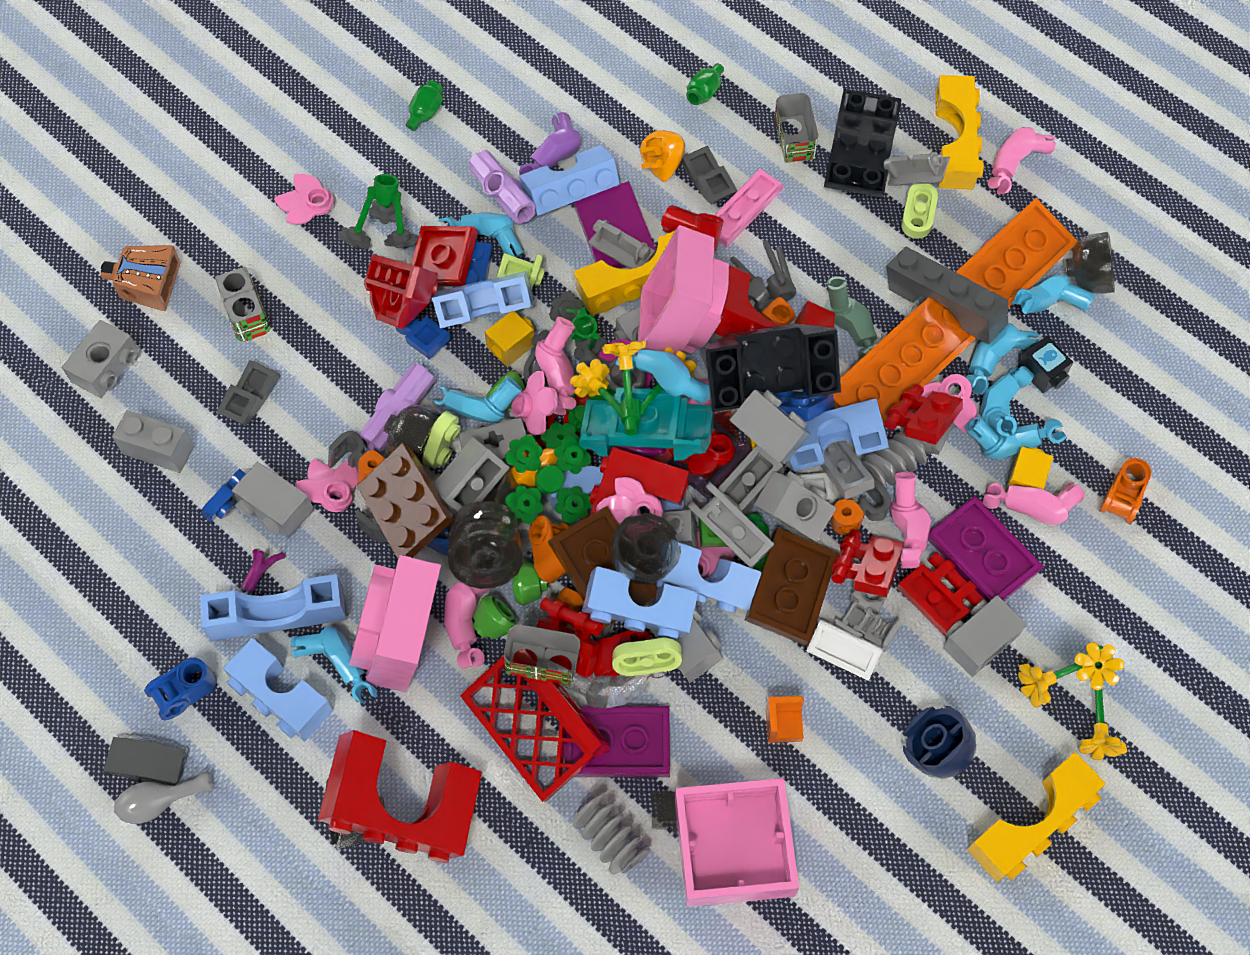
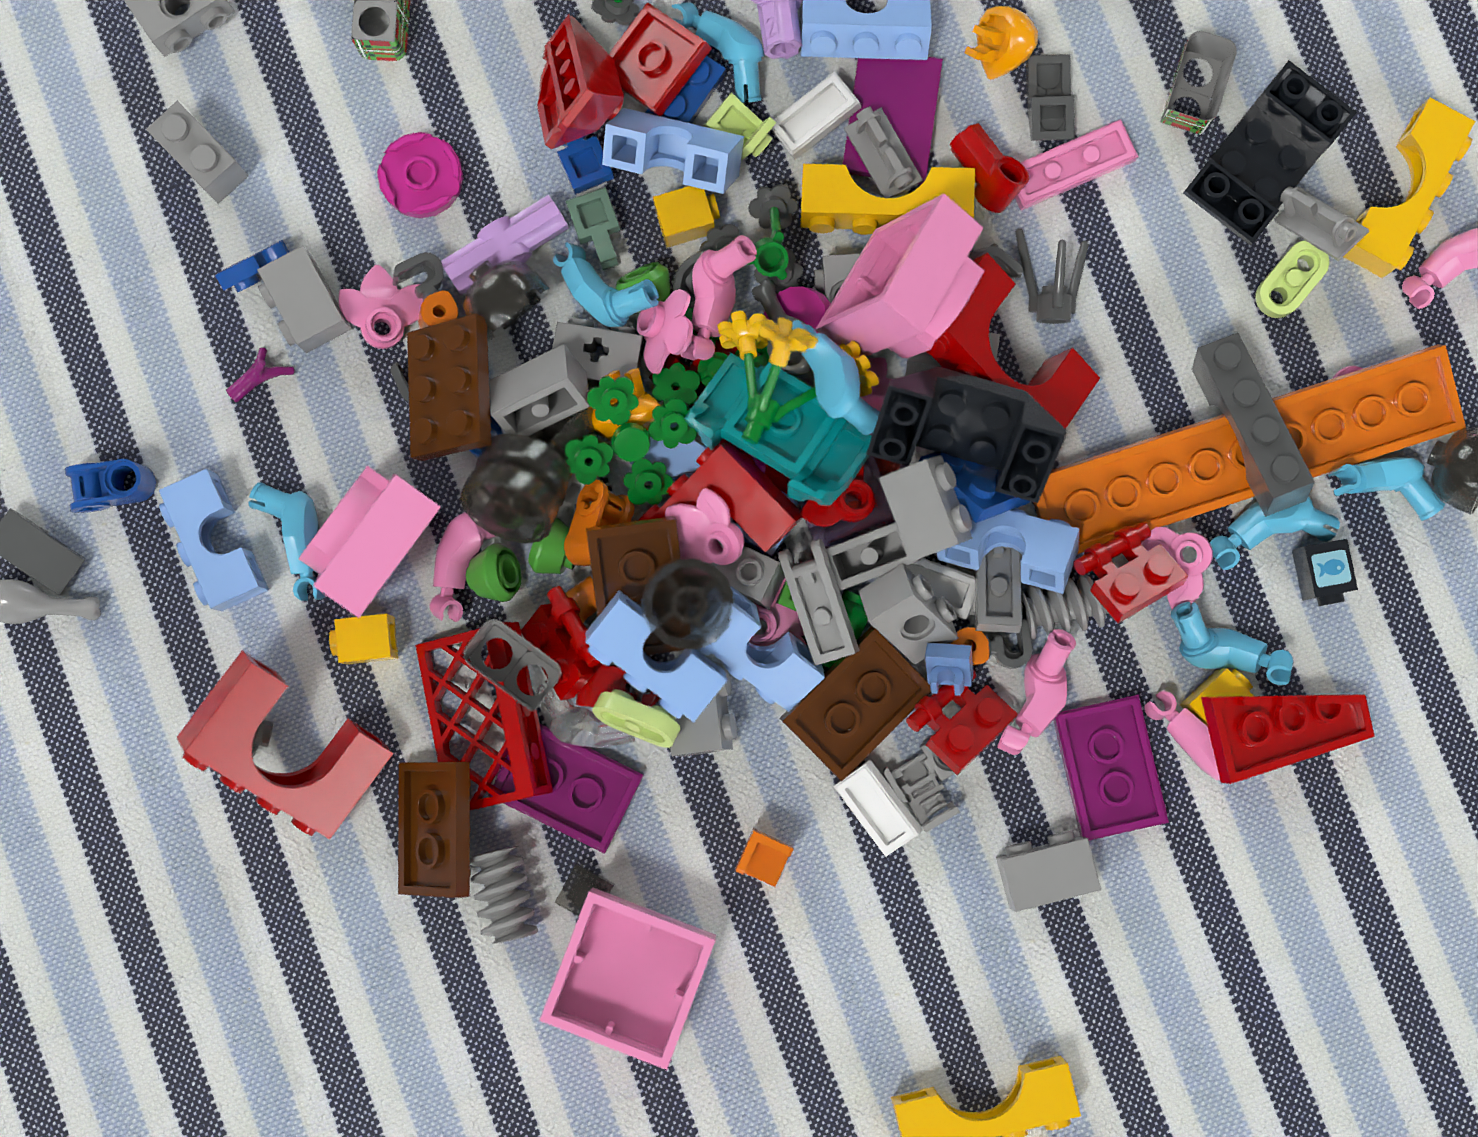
camera: 25 degrees right, 20 degrees up
(239, 615) = (247, 441): light blue arch -> none
(249, 394) = (340, 138): dark grey slope -> none
(325, 396) = (420, 188): none -> dark pink tile
(421, 706) = (364, 639): none -> yellow brick
(441, 436) = (533, 319): yellowish green plate -> none
(453, 367) = (595, 221): none -> sand green plate
(537, 811) = (434, 829): none -> reddish brown plate
(565, 245) = (815, 115): none -> white tile
(774, 310) = (1026, 338): leg -> none
(840, 527) = (949, 666): none -> medium blue tile
(851, 315) = (1121, 389): sand green arm -> none
(934, 598) = (1016, 798): red plate -> none
(940, 742) = (920, 976): dark blue cylinder -> none
(996, 399) = (1234, 588): medium azure arm -> none
(1079, 467) = (1275, 731): none -> red wing
(1097, 666) = (1139, 998): yellow plant -> none
(1125, 495) = (1317, 788): orange piece -> none

